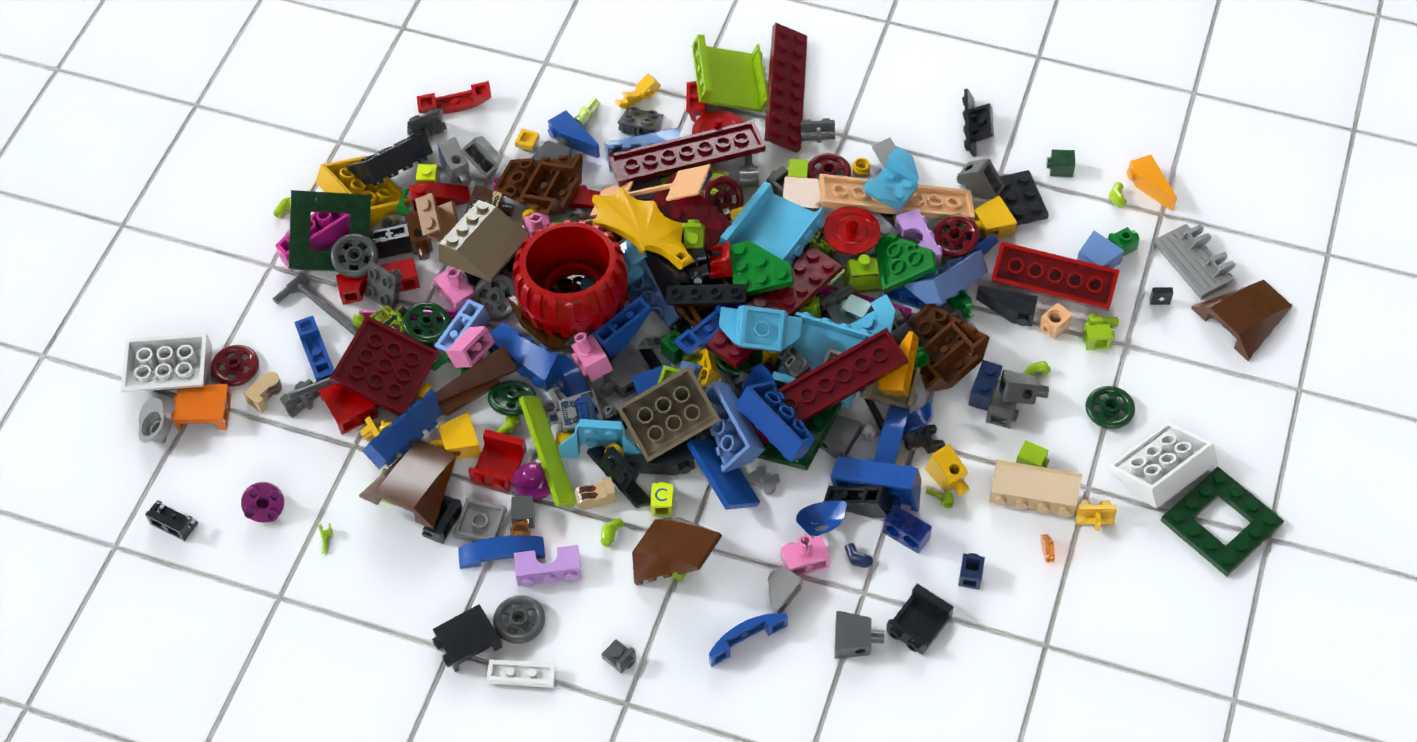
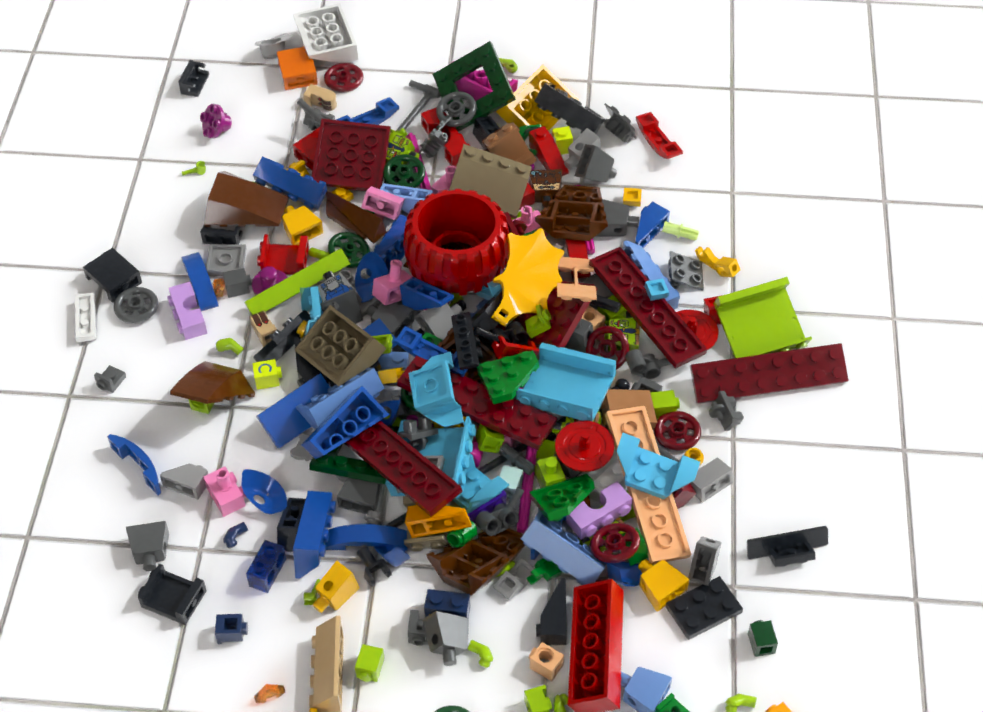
camera: 75 degrees right, 5 degrees down
(676, 136) = (656, 289): none -> medium azure plate

